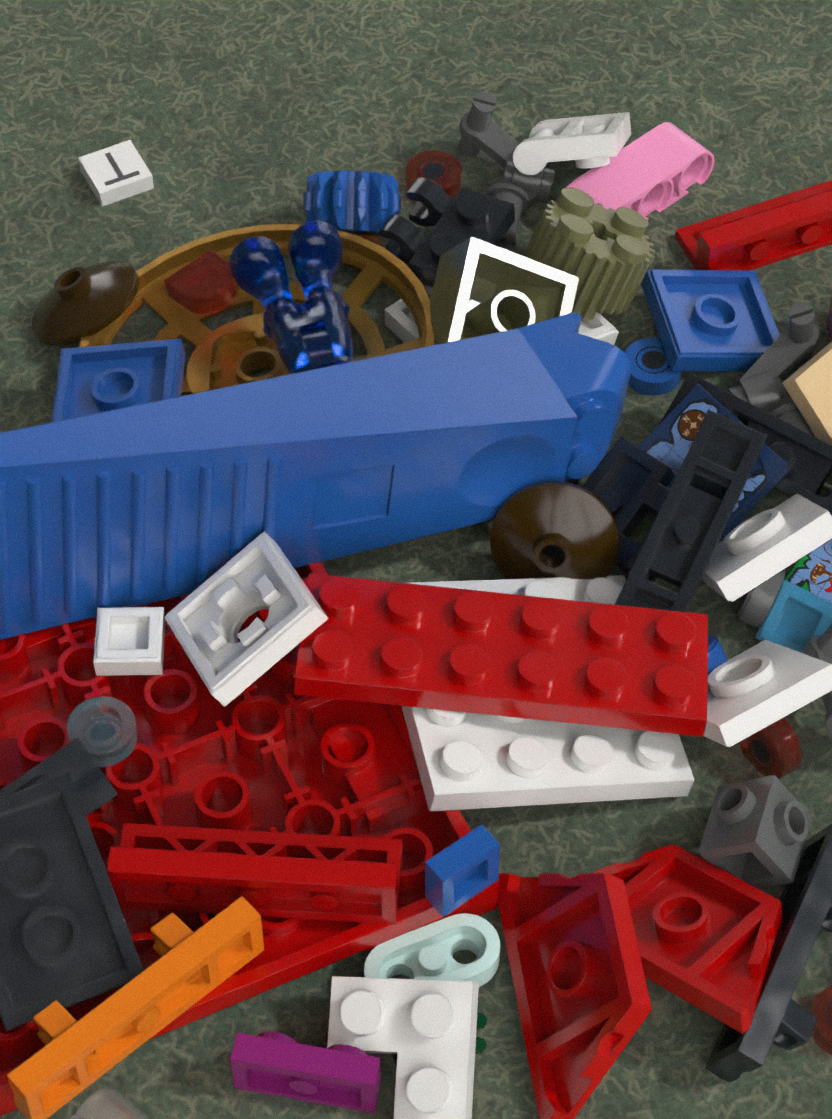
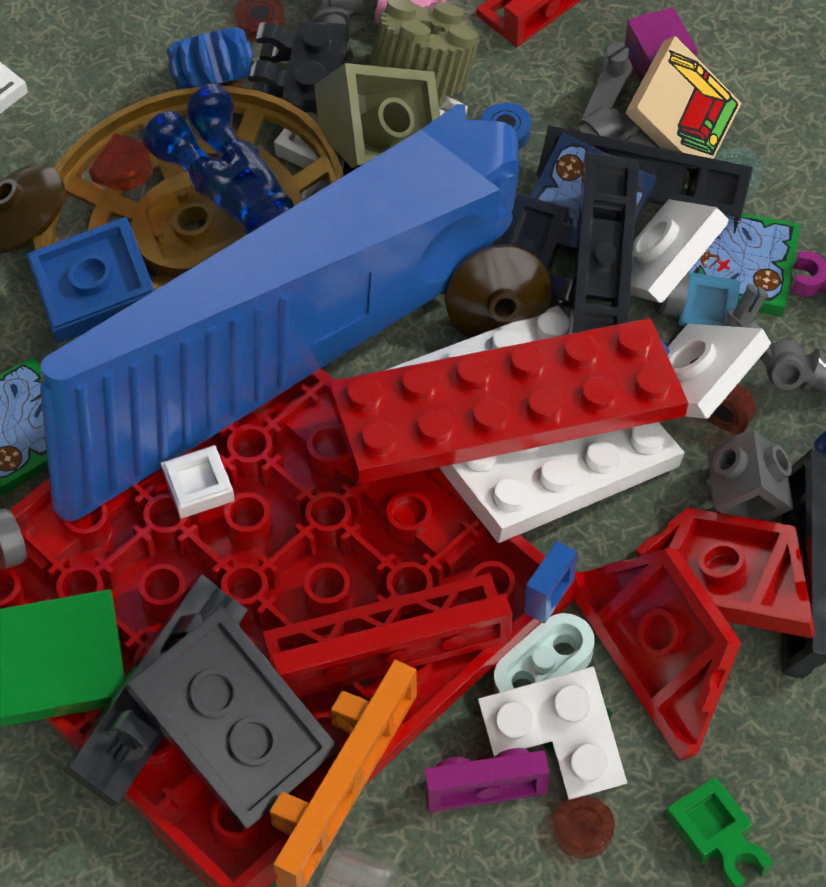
camera: 20 degrees left, 5 degrees up
(104, 728) = (210, 556): clear light blue tile -> none
(214, 612) = (261, 434): white piece -> none
(710, 318) = (537, 75): blue tile -> none

